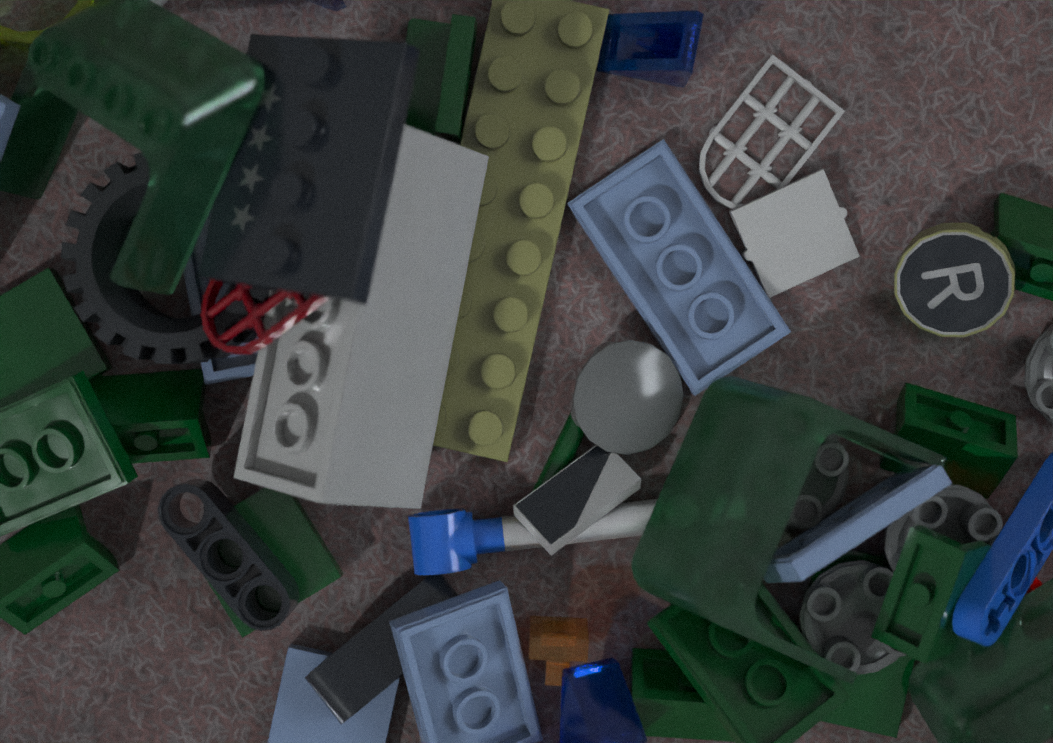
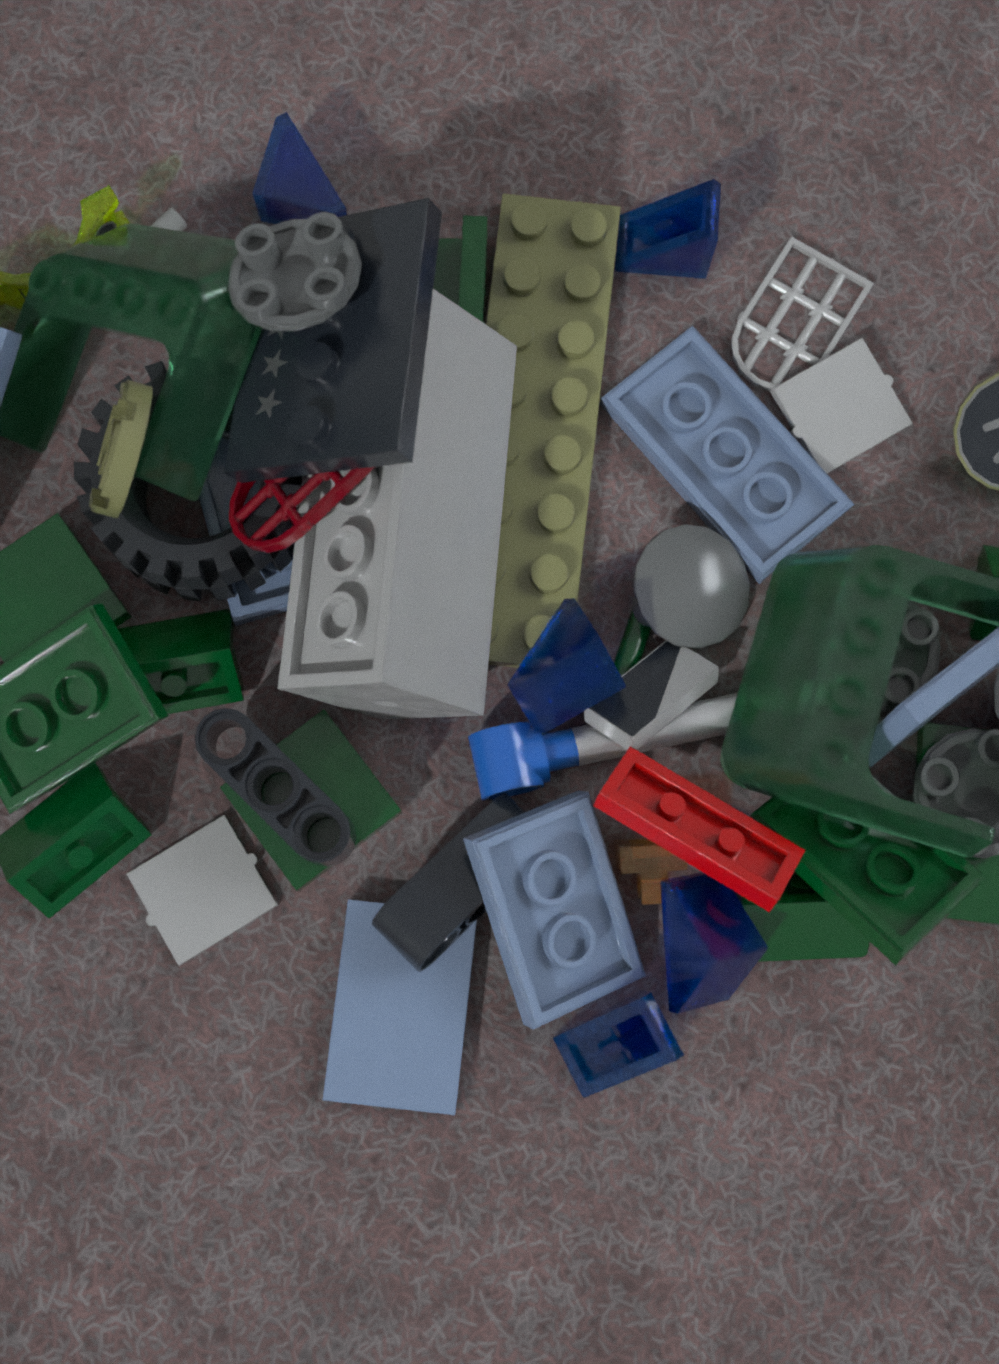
camera: 10 degrees left, 10 degrees down
(102, 251) = (121, 448): none -> olive tile
(161, 621) = (202, 890): none -> light grey piece
(272, 103) = (293, 272): none -> dark grey dish
(501, 470) = (564, 670): none -> clear blue slope
(600, 633) = (699, 828): none -> red plate

